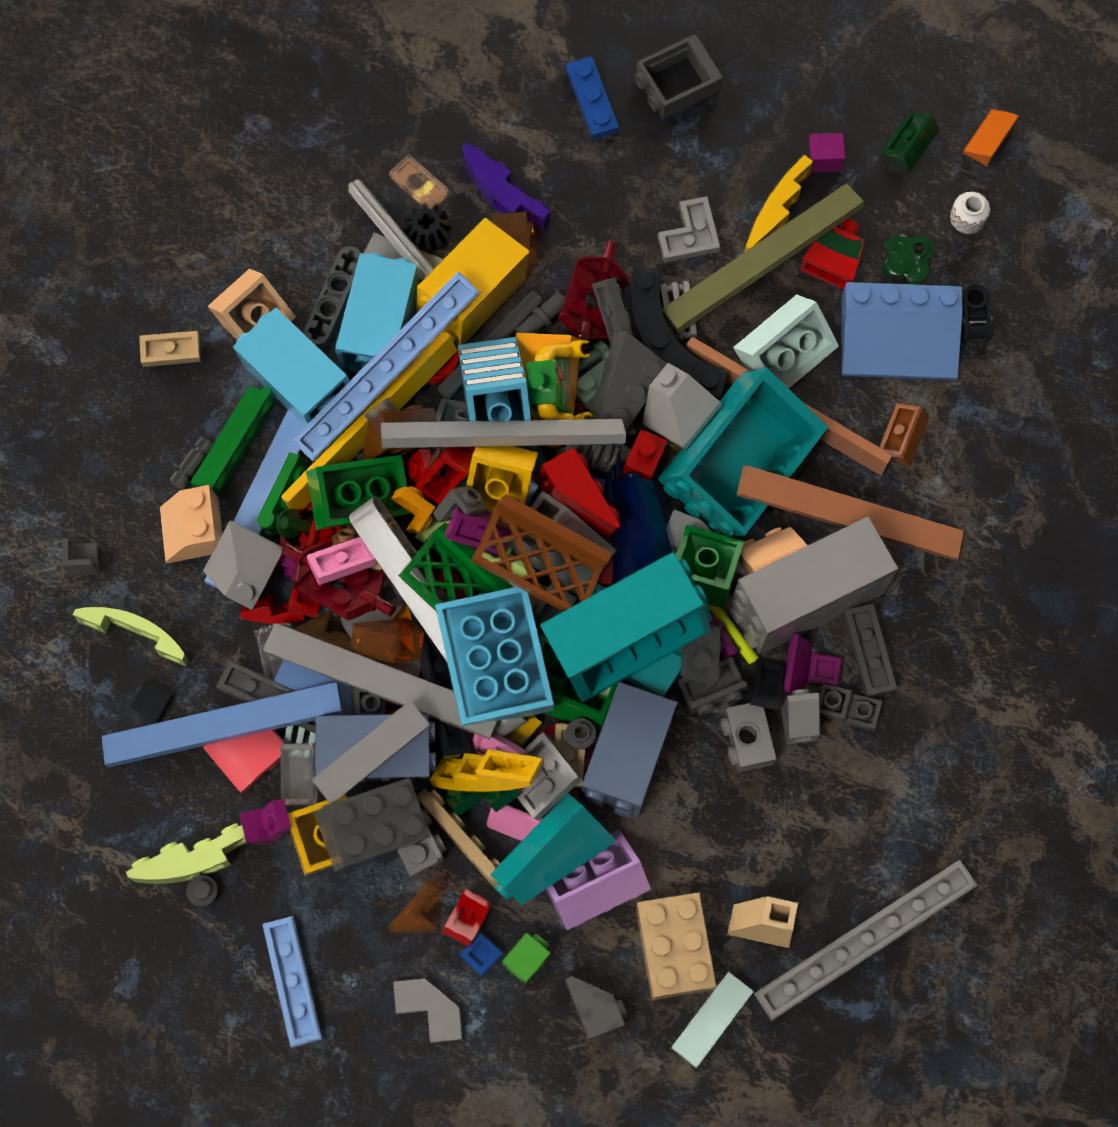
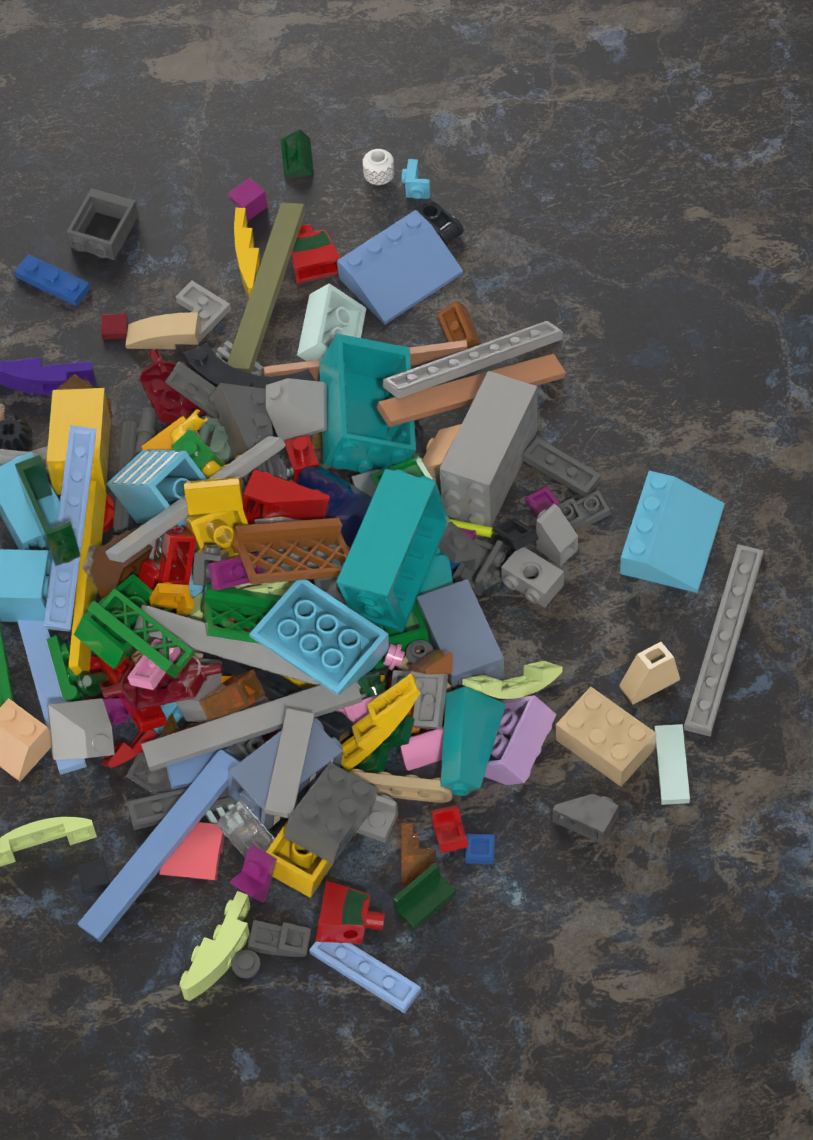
camera: 35 degrees left, 15 degrees down
(247, 891) = (278, 940): none -> dark grey slope
(313, 922) = (346, 915): none -> red torso
(335, 527) = (132, 636): none -> green fence
(380, 299) = (35, 486): none -> dark green panel
(393, 961) = (423, 897): none -> dark green panel
(422, 996) = (487, 904): light grey tile -> none
(511, 732) = (371, 684): none -> dark green plate
(512, 445) = (214, 495): none -> yellow slope
(527, 957) = (513, 823): bright green brick -> none
(556, 718) = (393, 656): none -> bright pink plate
(573, 761) = (434, 663): none -> dark orange slope
(605, 187) = (114, 326): none -> dark red tile
(640, 229) = (164, 331): none -> tan slope
(666, 838) = (535, 678): none -> yellowish green slope
(797, 664) = (518, 508): magenta slope -> none
(877, 483) = (472, 359): none -> light grey tile
(904, 259) = (360, 225): dark green plate -> none
(910, 799) = (671, 533): none -> medium azure slope
(990, 136) = (347, 116): orange slope -> none
(990, 246) = (415, 187): none -> medium azure bracket

